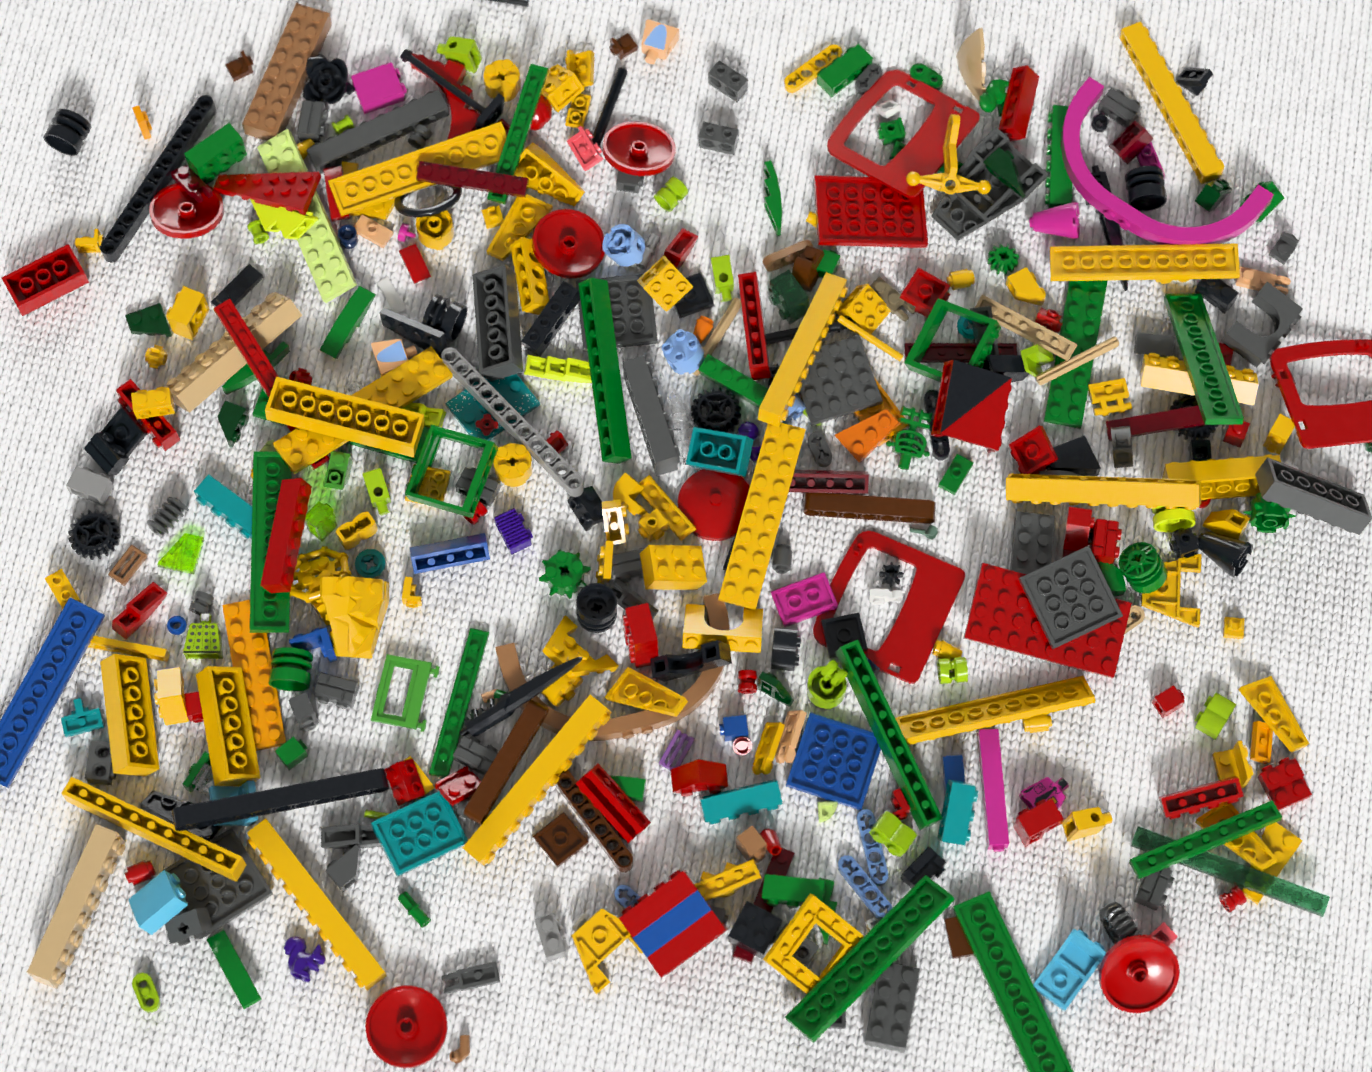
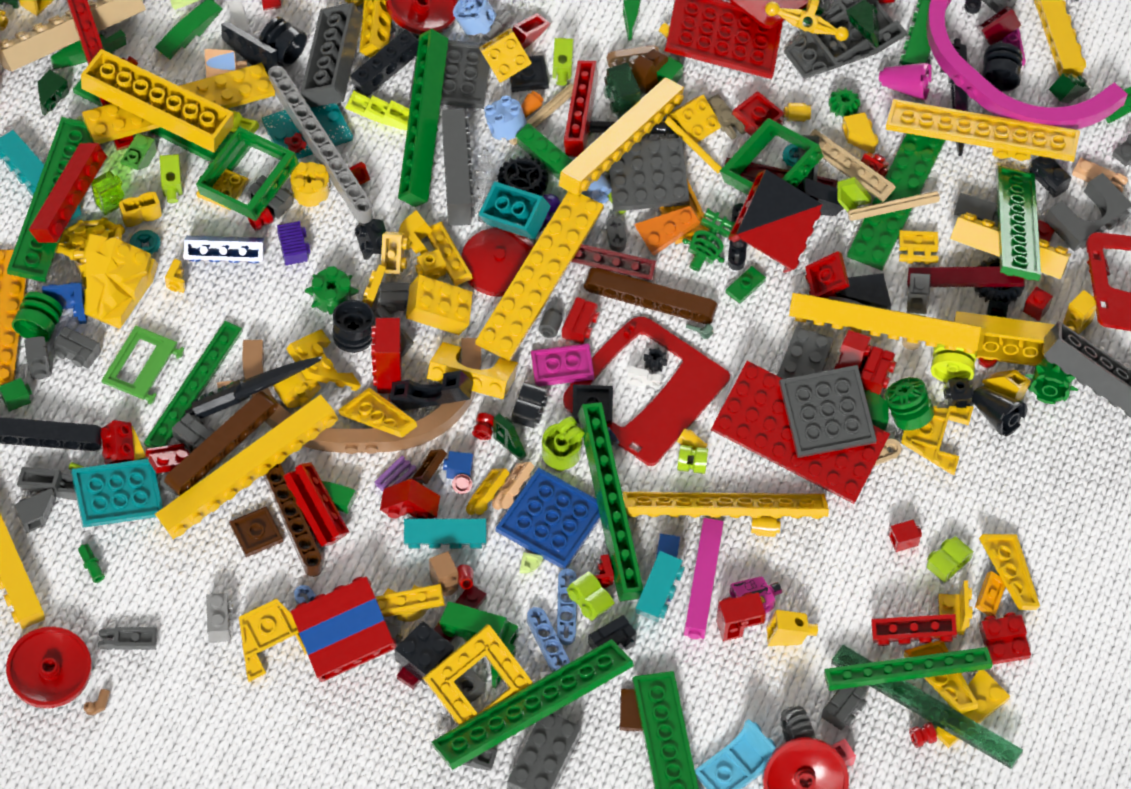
camera: 10 degrees right, 10 degrees down
(706, 736) = (429, 466): none -> reddish brown tile
(809, 550) = (580, 320): none -> red brick
(1233, 627) = (990, 483): yellow tile -> none

